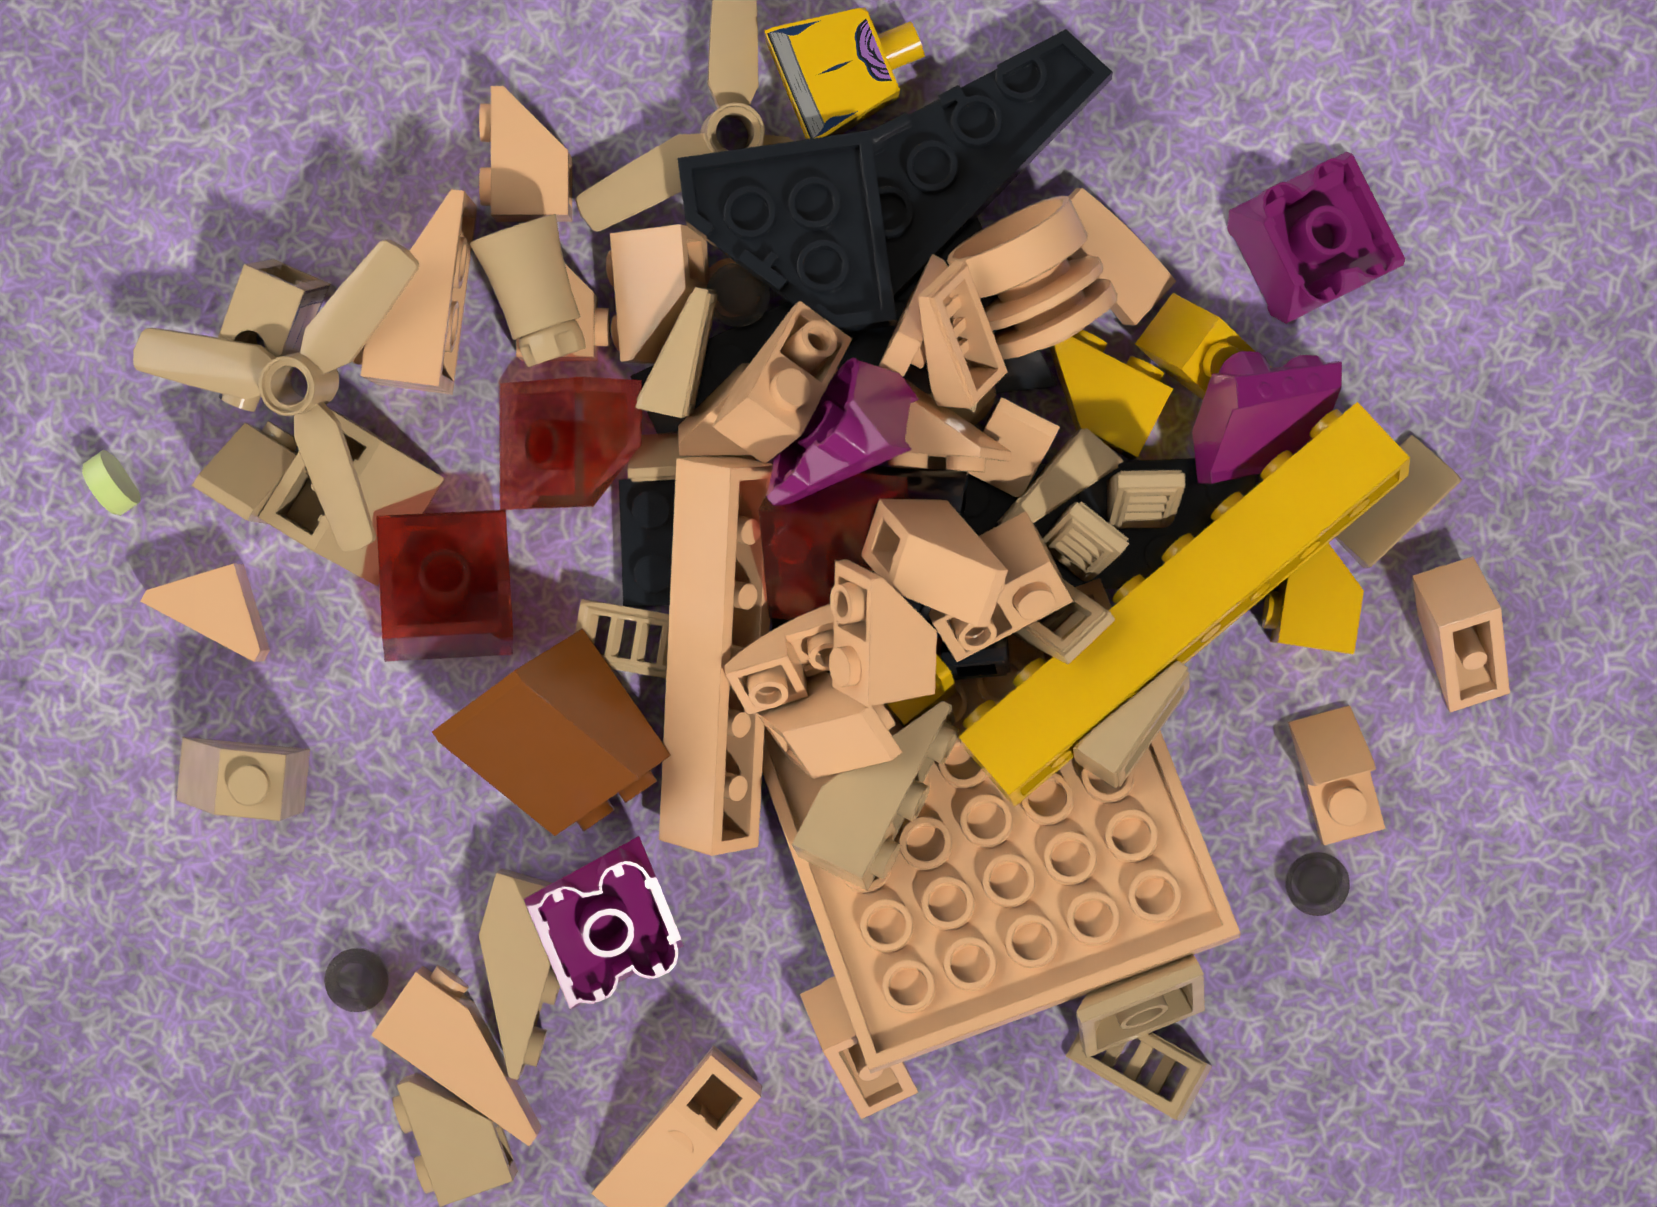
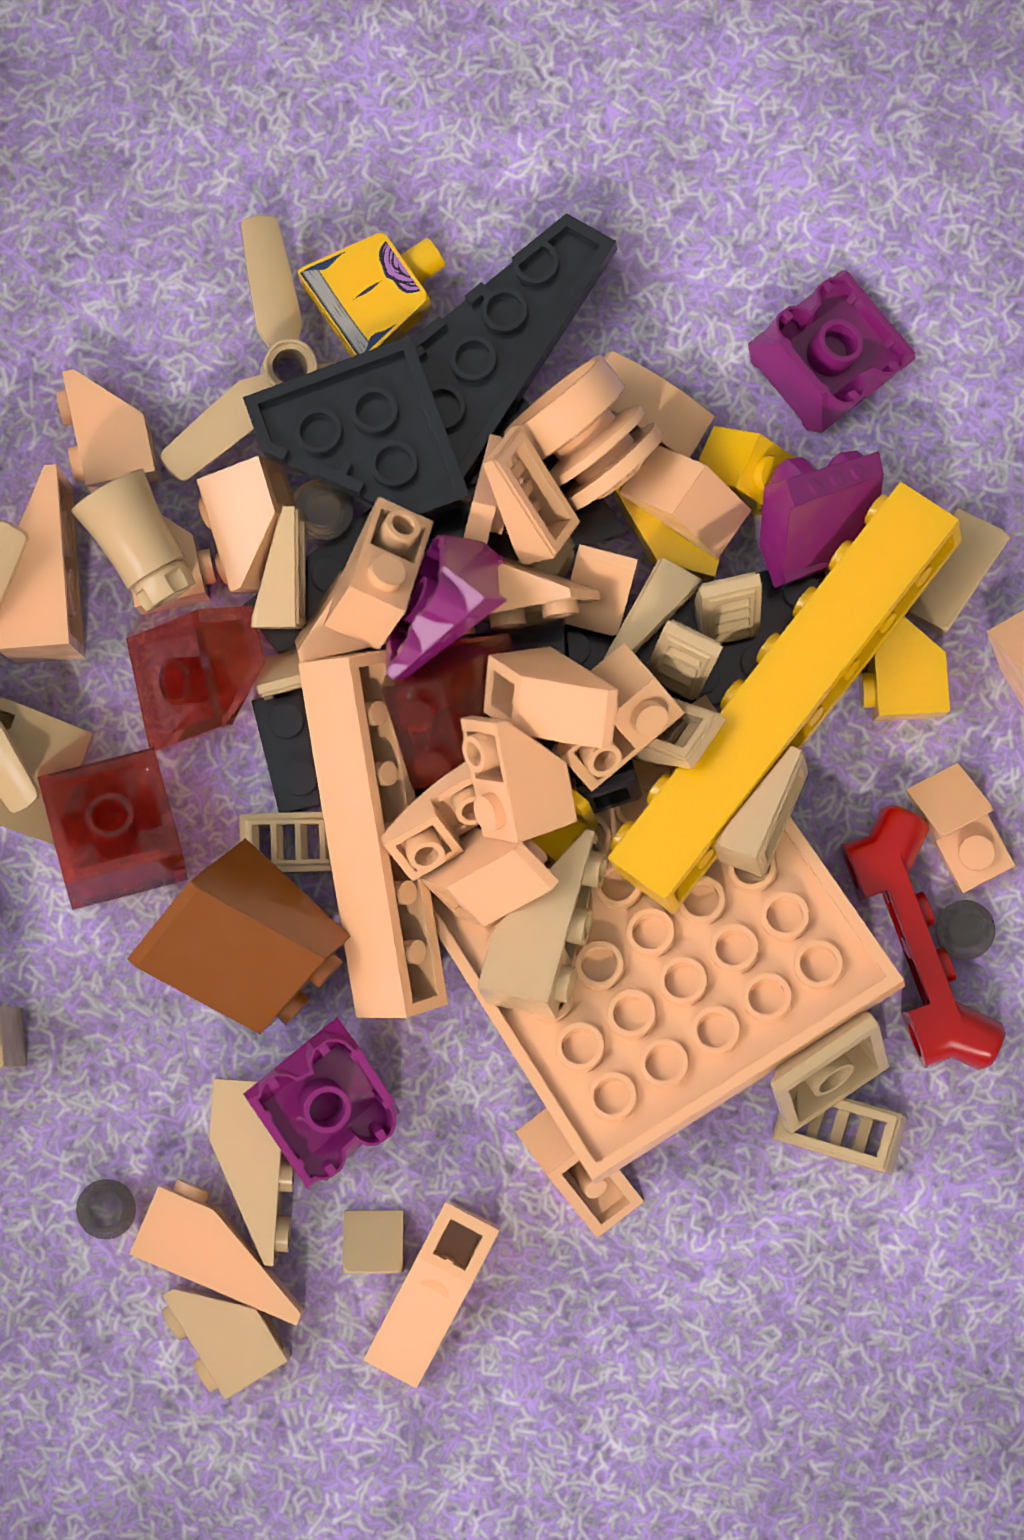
camera: 10 degrees left, 5 degrees down
(627, 1074) = (373, 1241): none -> tan slope
(1127, 371) = (687, 499): none -> light nougat slope
(1268, 978) = (941, 1025): none -> red plate

